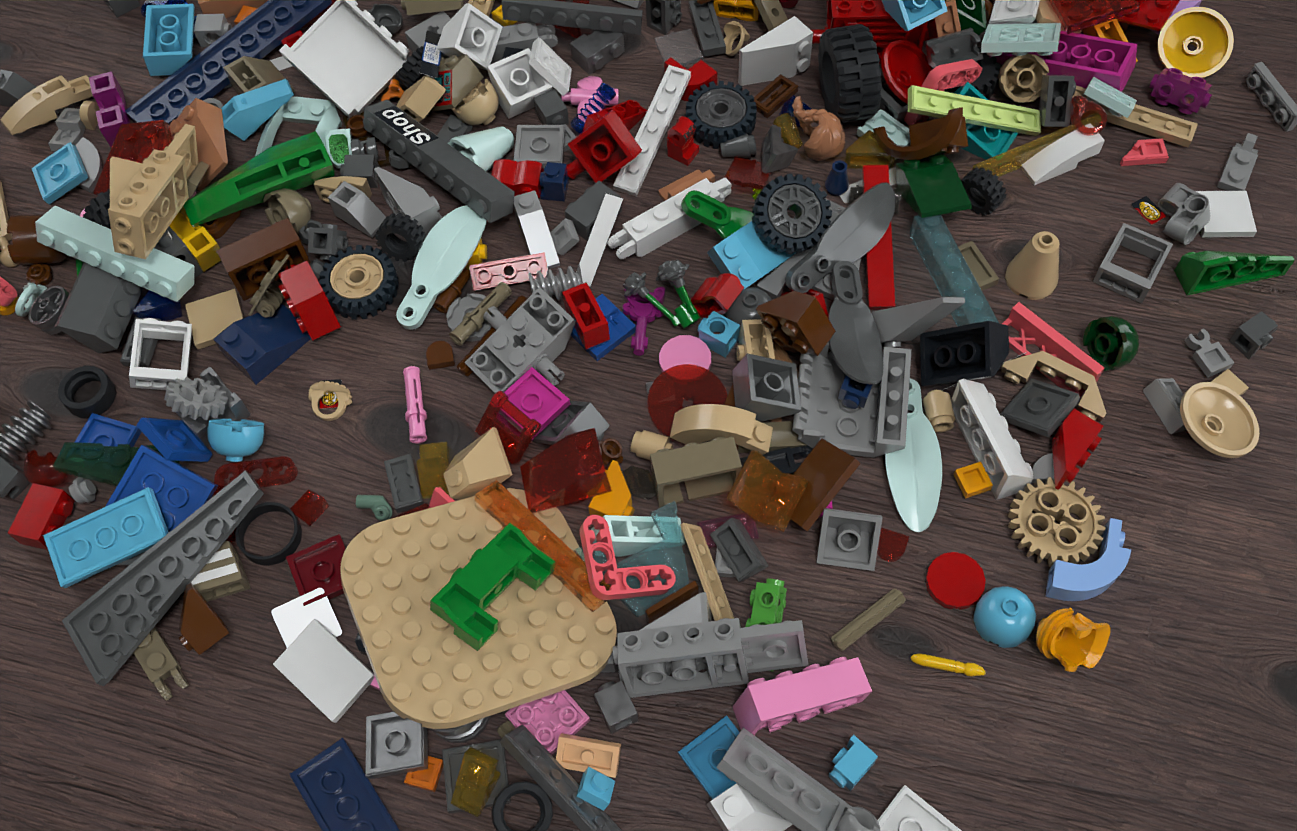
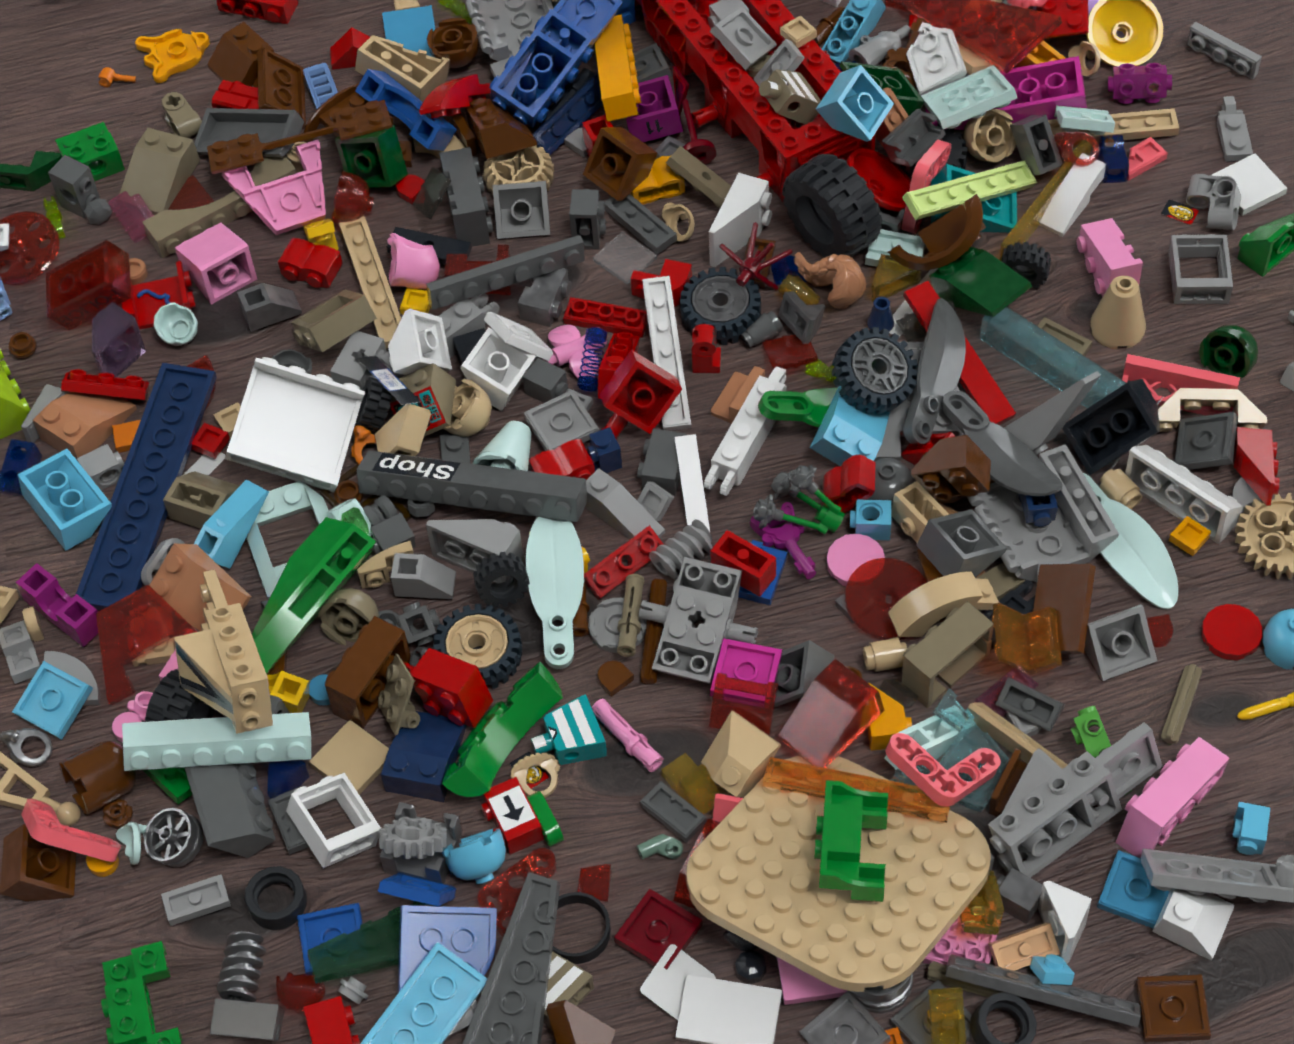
camera: 30 degrees left, 5 degrees down
(14, 189) = (14, 740): none -> flat silver piece
(37, 363) = (195, 900): none -> light grey plate
(287, 421) = (513, 815): none -> brick
(308, 436) = (550, 827): none -> green beam
(321, 355) = (500, 732): none -> green brick
(375, 381) = (572, 733): none -> teal torso
(568, 705) = (985, 910): none -> clear yellow hinge
(629, 83) = (605, 316): none -> red tile
(634, 753) = (1066, 913): none -> white slope
(759, 92) = (751, 265): none -> dark red plant
(1059, 214) = (1107, 254): none -> bright pink wedge
(1117, 140) = (1114, 156): none -> clear blue leg
(1143, 48) = (1083, 50): none -> tan piece

